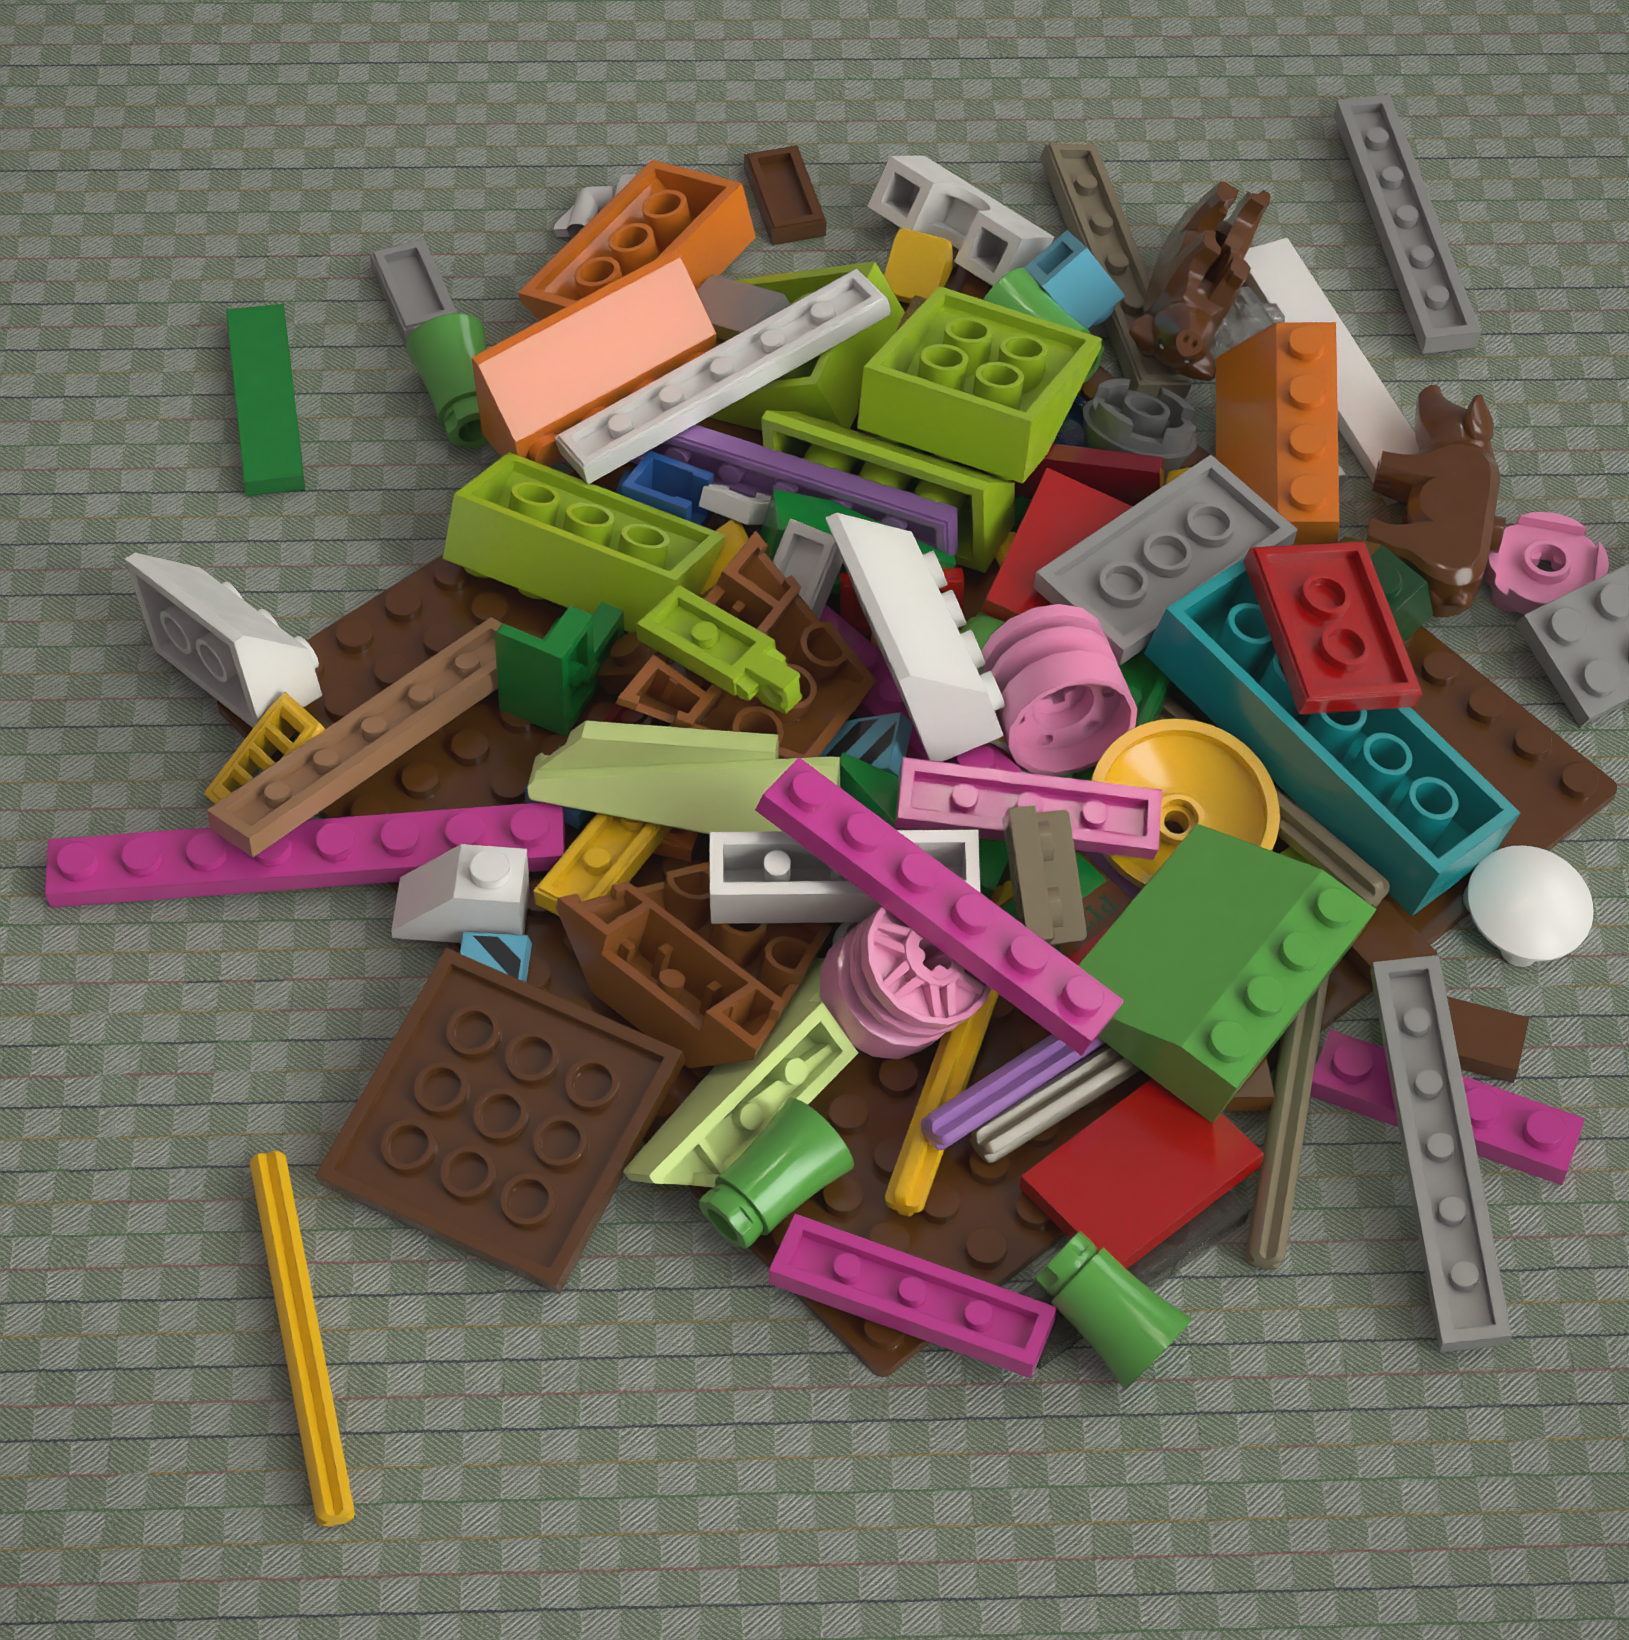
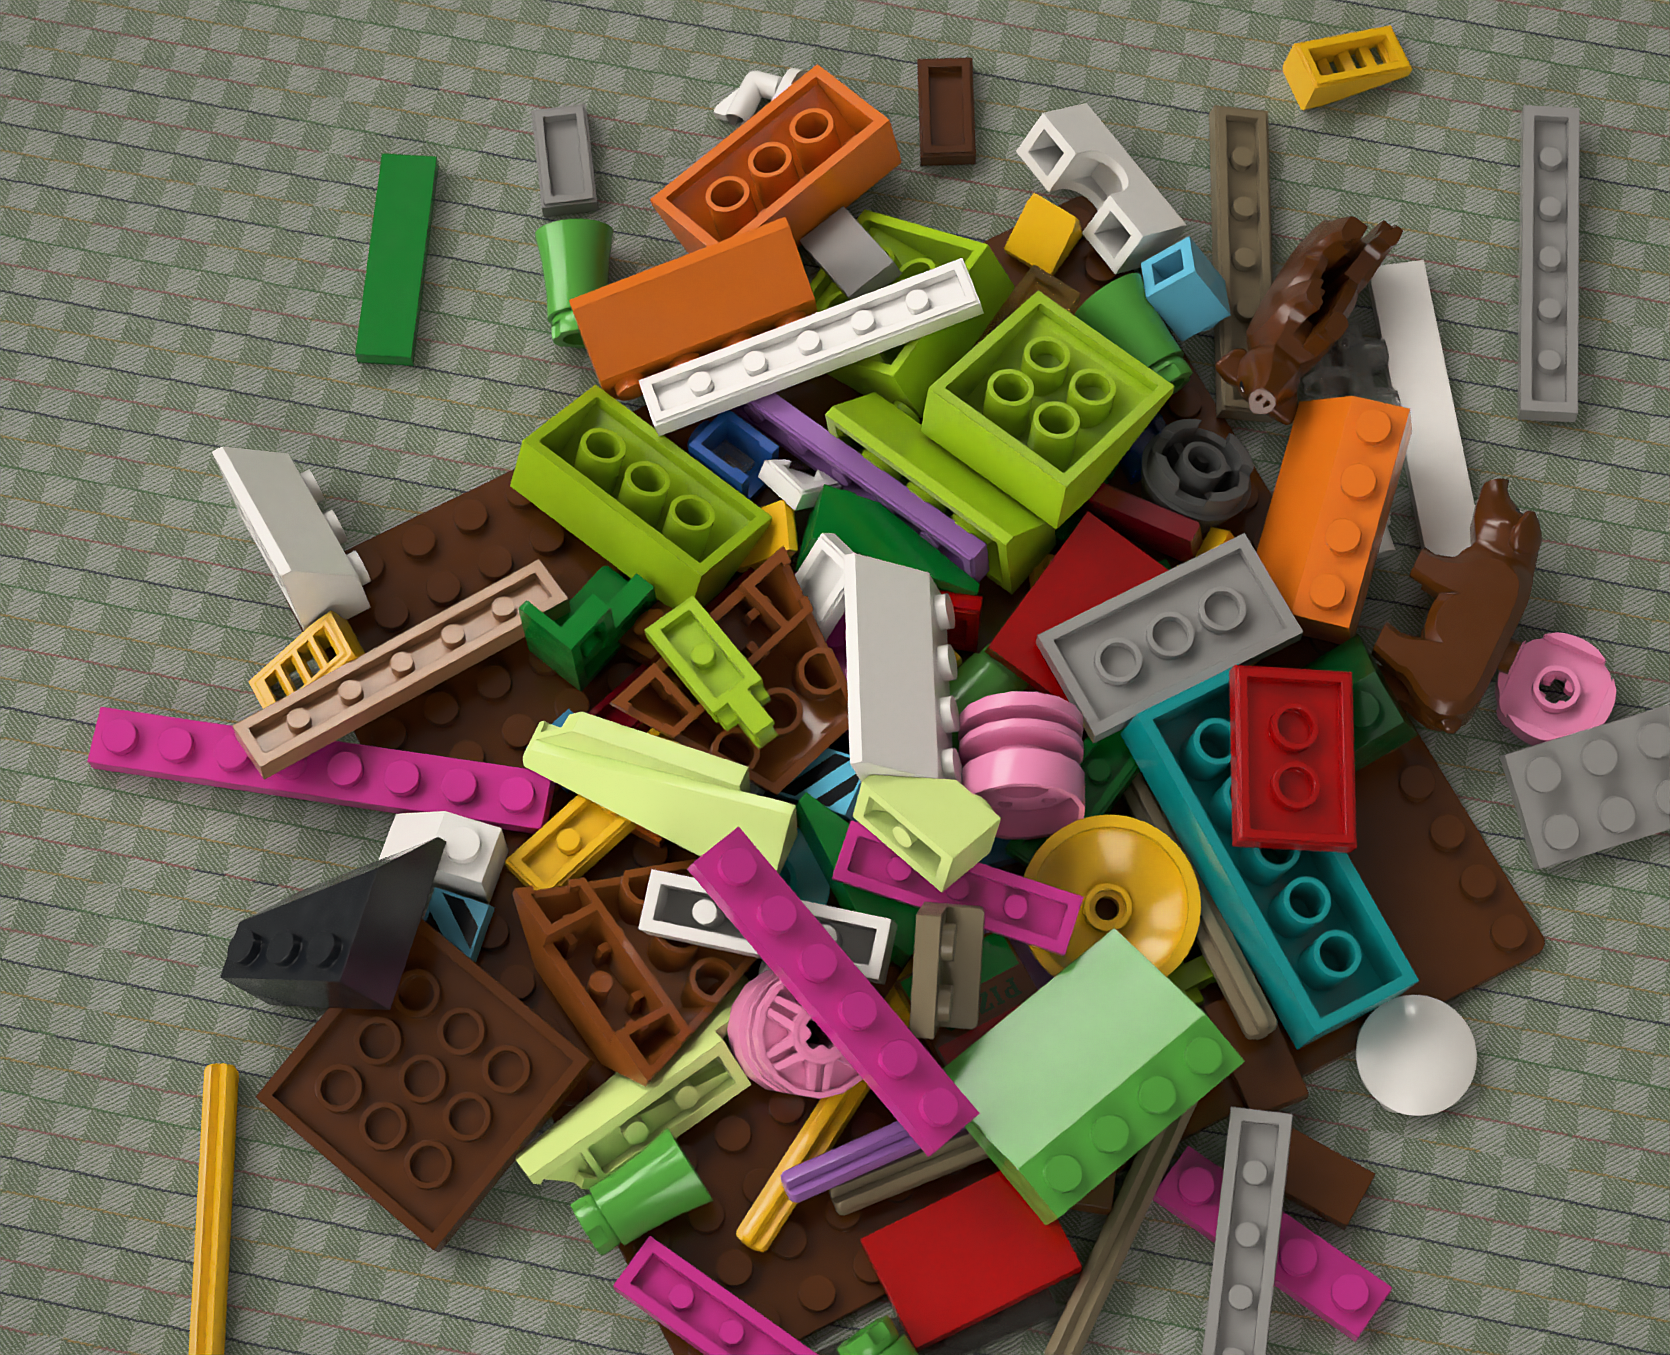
camera: 20 degrees right, 15 degrees up
(373, 990) = (339, 938): none -> black wedge
(986, 738) = (928, 824): none -> yellowish green slope
(1149, 102) = (1313, 79): none -> yellow slope

